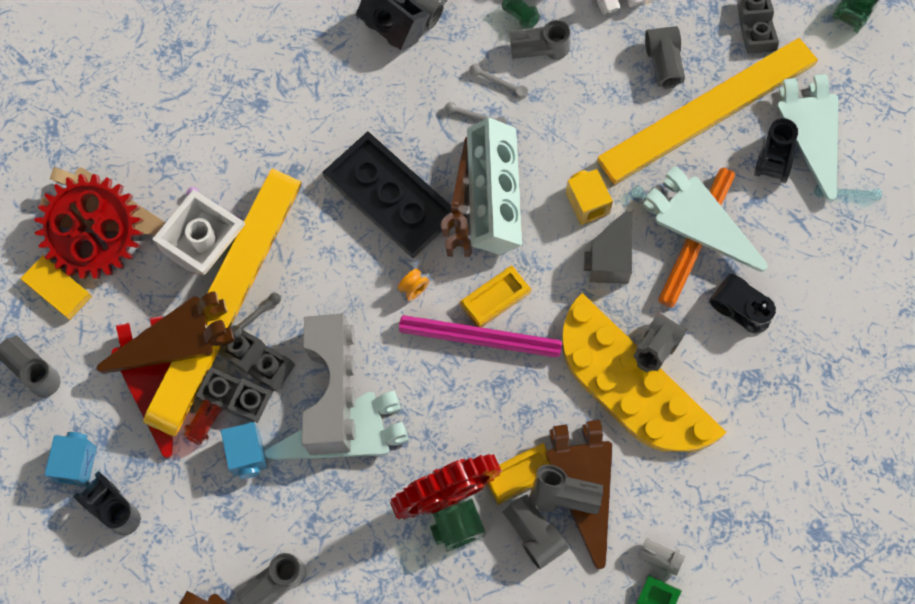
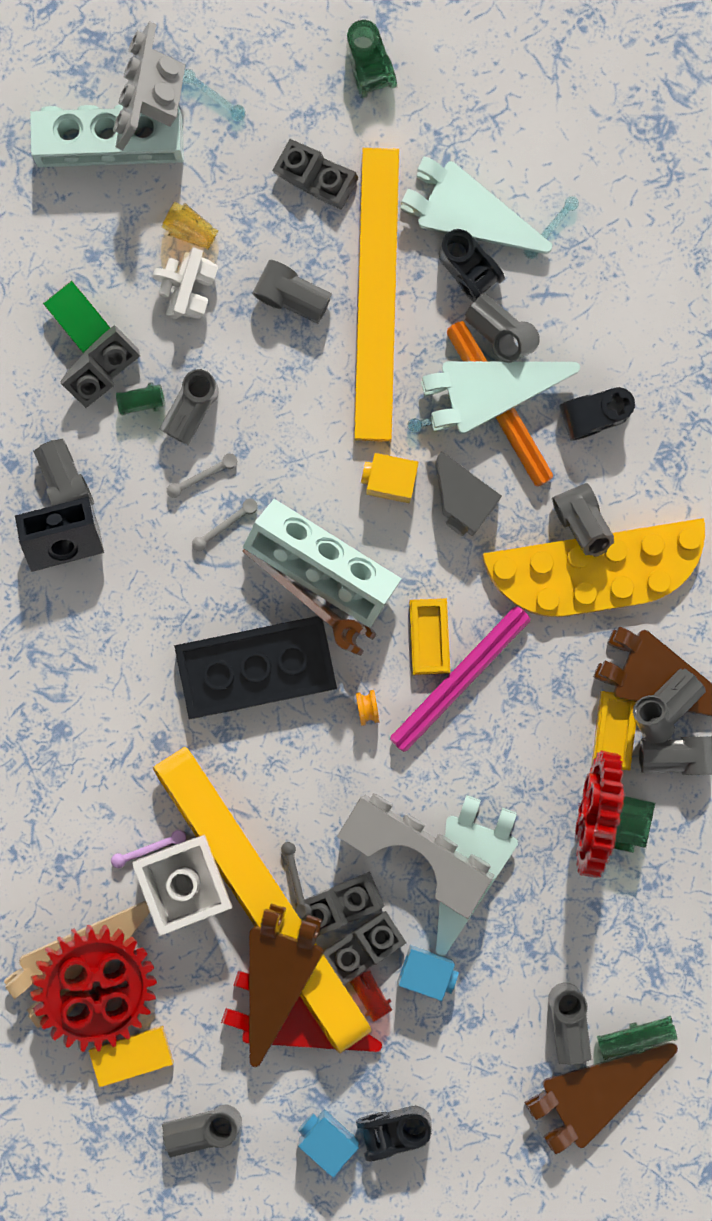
camera: 60 degrees left, 15 degrees up
(748, 206) = (501, 328): none -> dark grey piece

